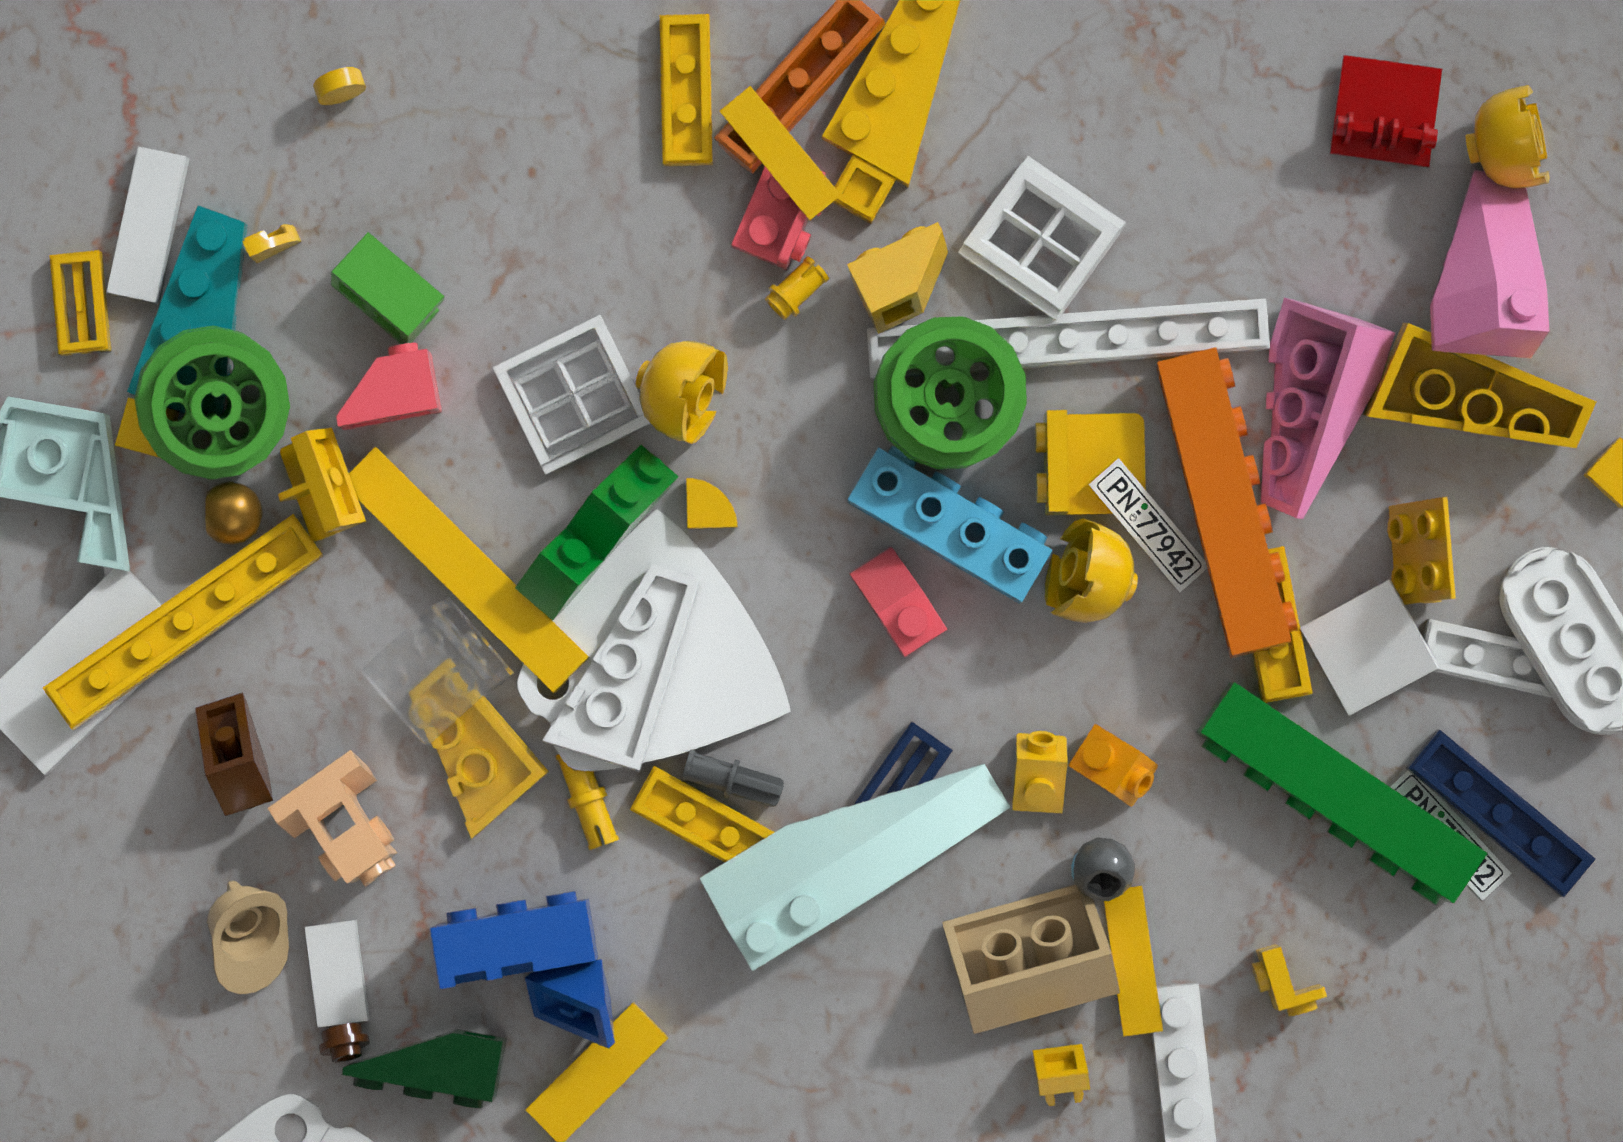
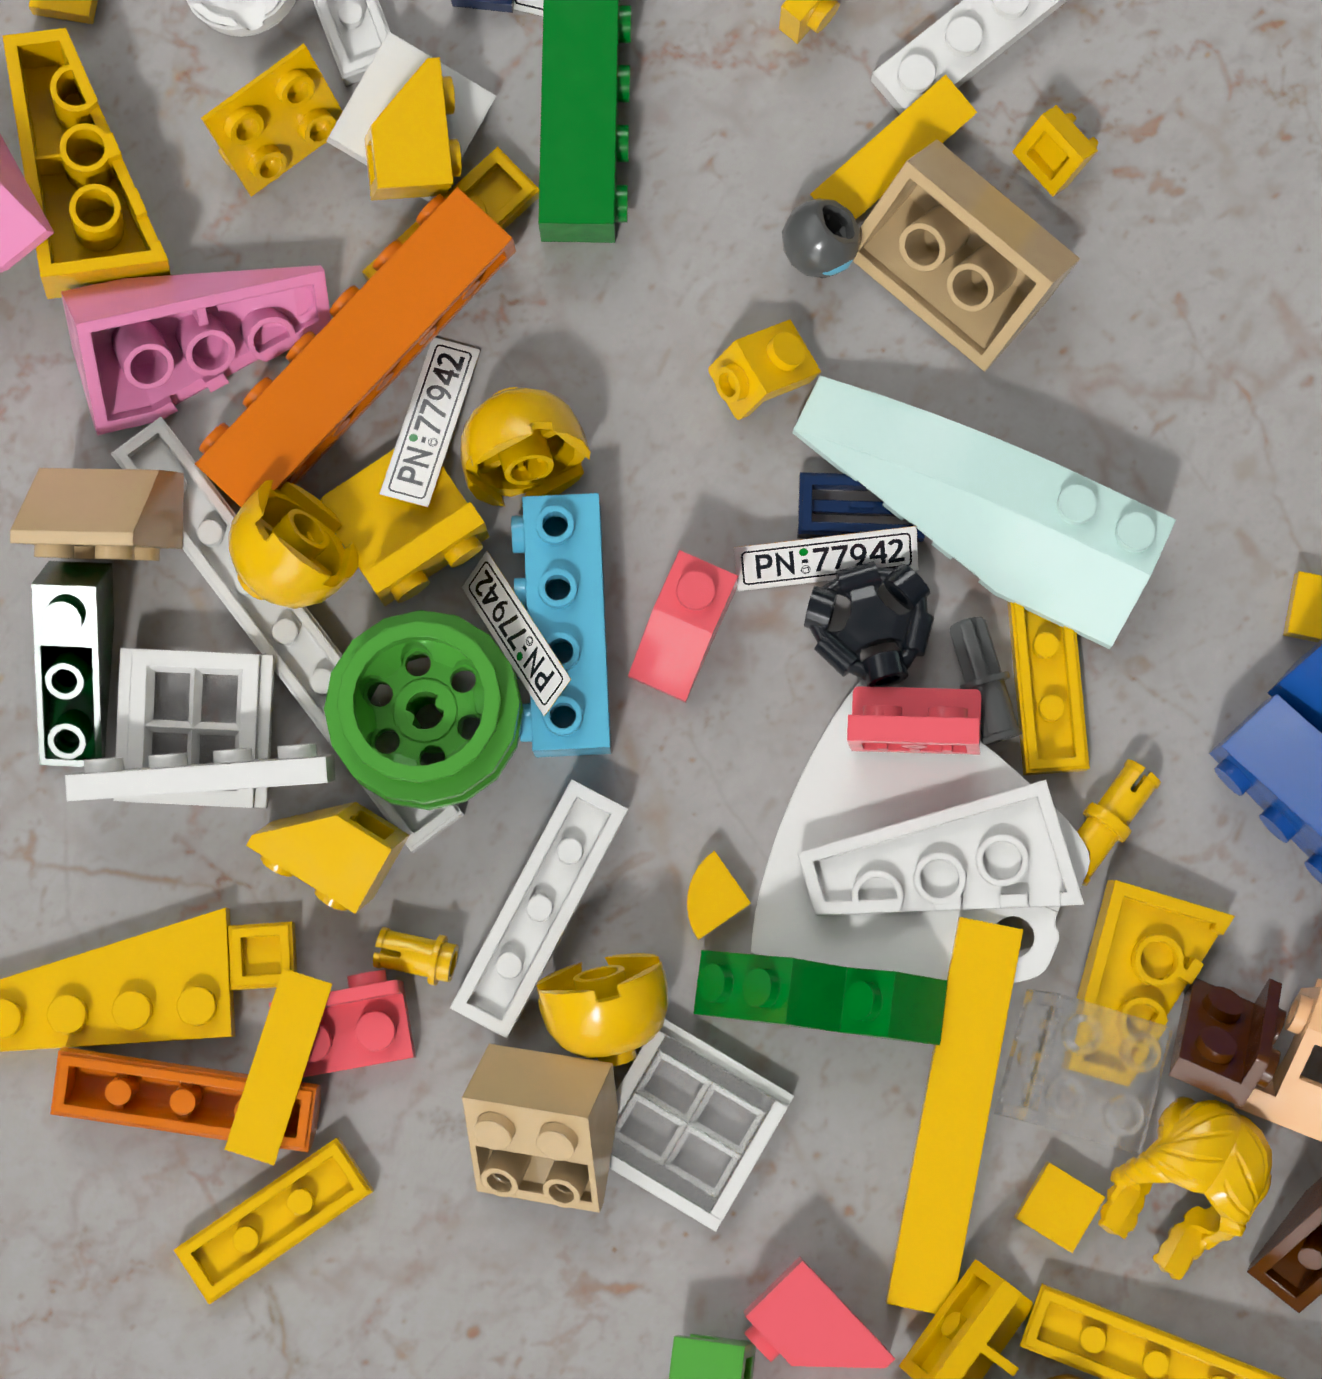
camera: 125 degrees left, 5 degrees down
(335, 708) = (1204, 1151): none -> yellow hair
(362, 598) = (1059, 1207): none -> yellow tile
(396, 773) = (1227, 1040): none -> reddish brown bracket
(631, 297) = (541, 1126): none -> tan slope
(735, 713) = (915, 720): none -> coral bracket
(774, 387) = (539, 909): none -> white plate
(820, 729) = (872, 622): none -> black piece
(883, 729) = (821, 557): none -> white sticker
(964, 487) = (516, 633): none -> white sticker
(994, 239) = (172, 775): none -> white plate
(1114, 765) = (706, 297): light orange bracket -> none
(1117, 374) = (289, 547): none -> yellow cylinder
(1139, 187) = (72, 660): none -> dark green slope
(1222, 265) = (102, 514): none -> tan slope
(1349, 632) = (410, 140): none -> yellow slope

